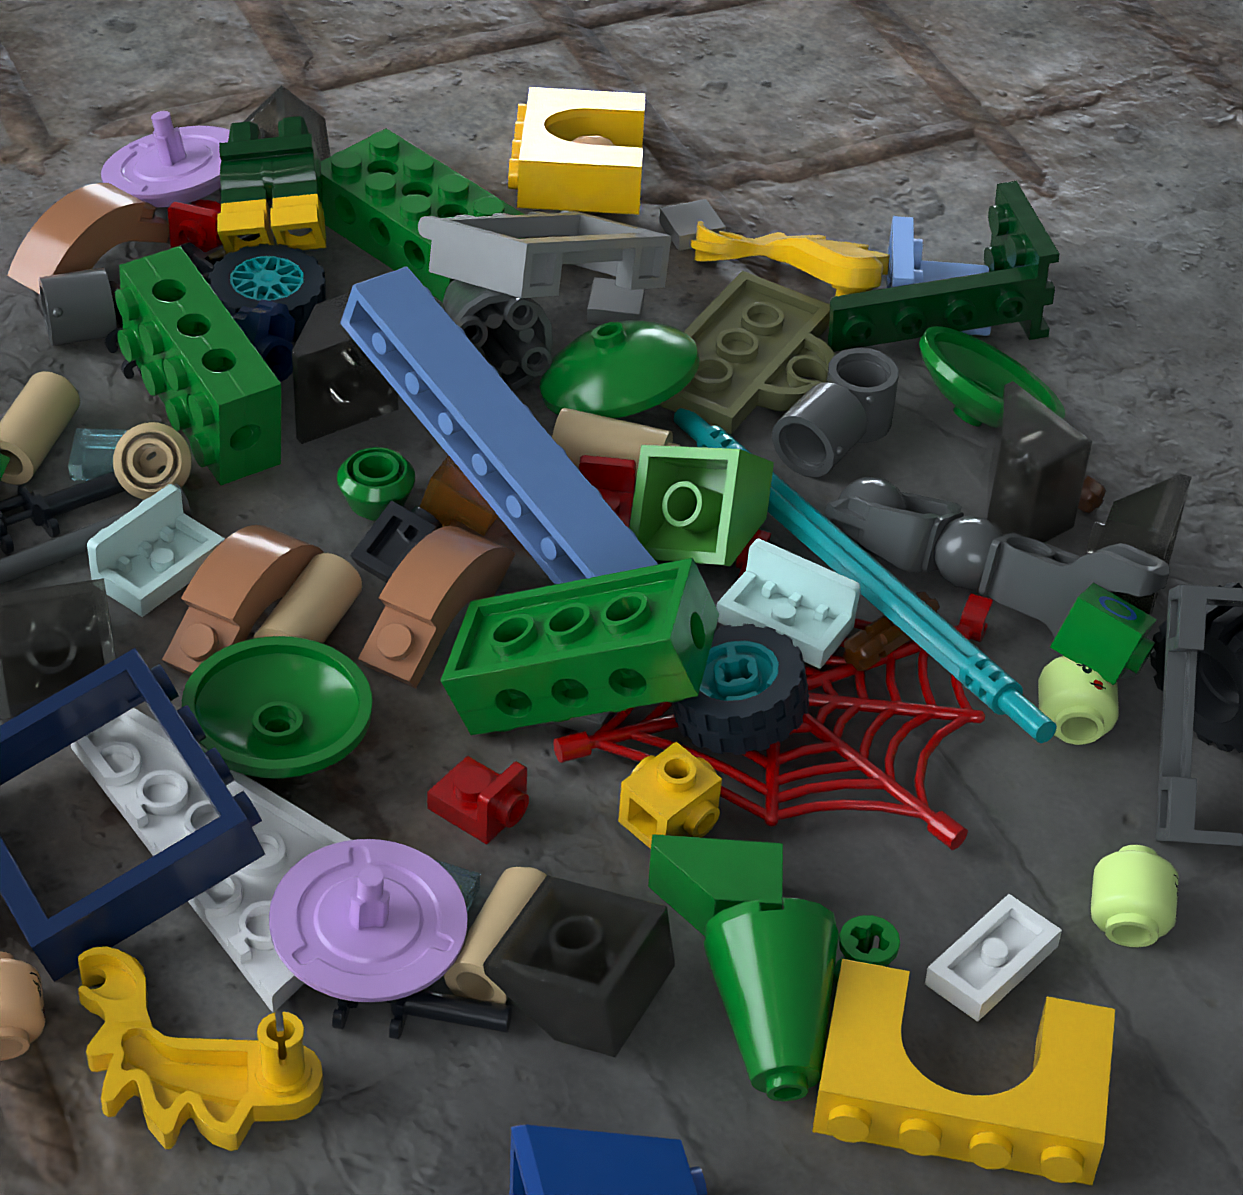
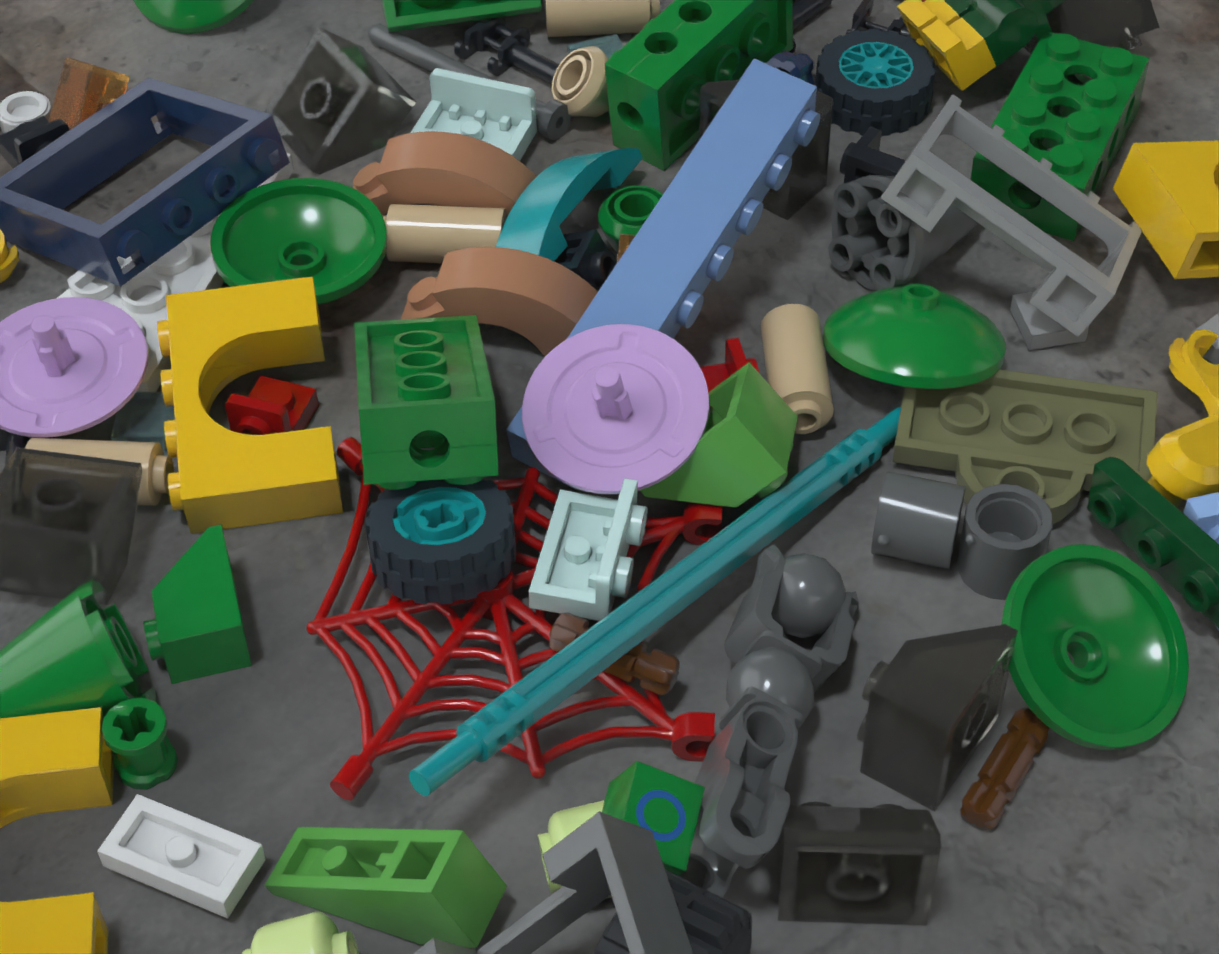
camera: 75 degrees right, 5 degrees up
(329, 518) = (555, 193): none -> teal slope
(405, 801) = (227, 473): none -> yellow arch
(668, 512) = (615, 408): none -> lavender piece
(670, 796) = (291, 534): yellow brick -> none
(1066, 823) = (393, 881): none -> bright green slope

